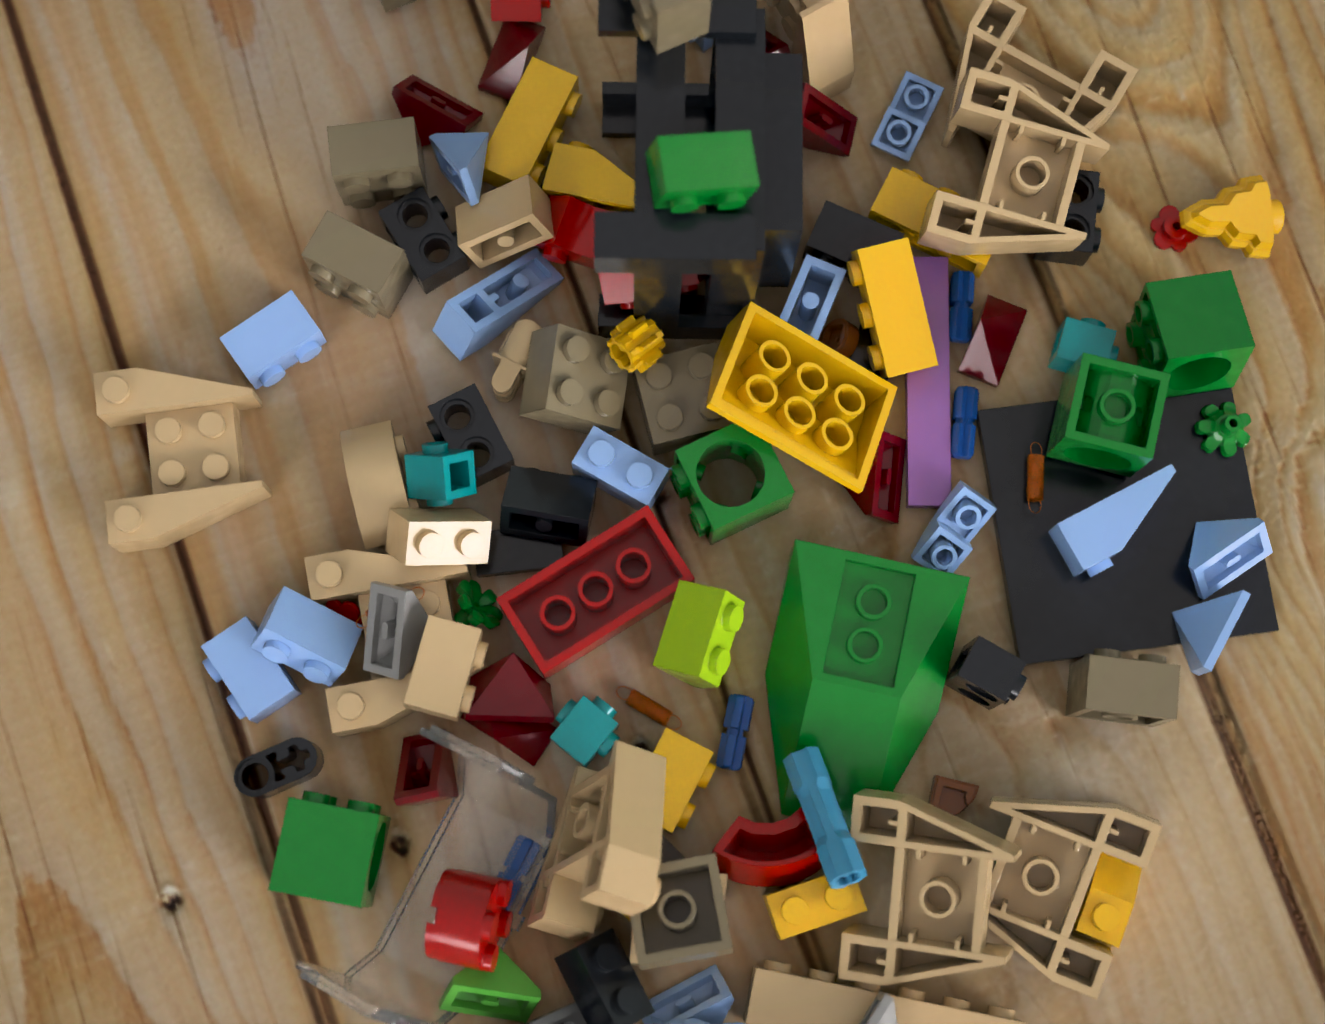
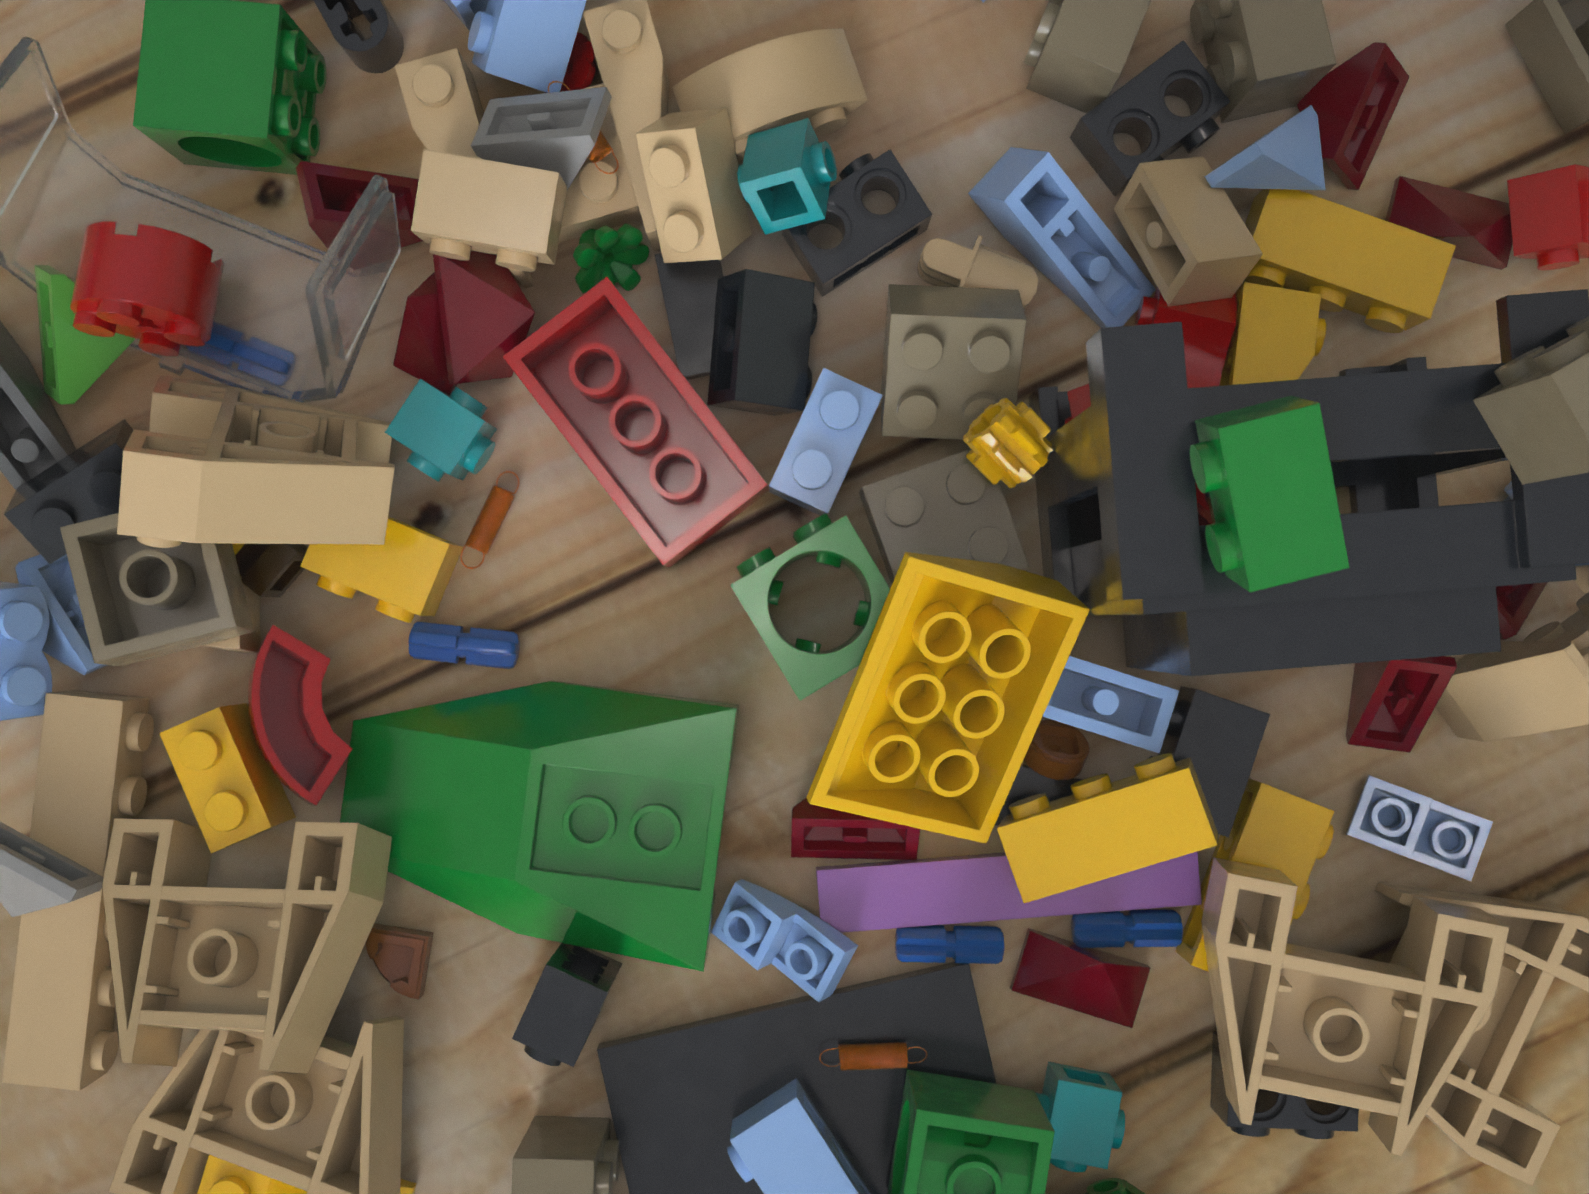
camera: 90 degrees right, 10 degrees up
(699, 634) = (579, 578): lime slope -> none
(826, 822) = (282, 800): dark azure axle -> none

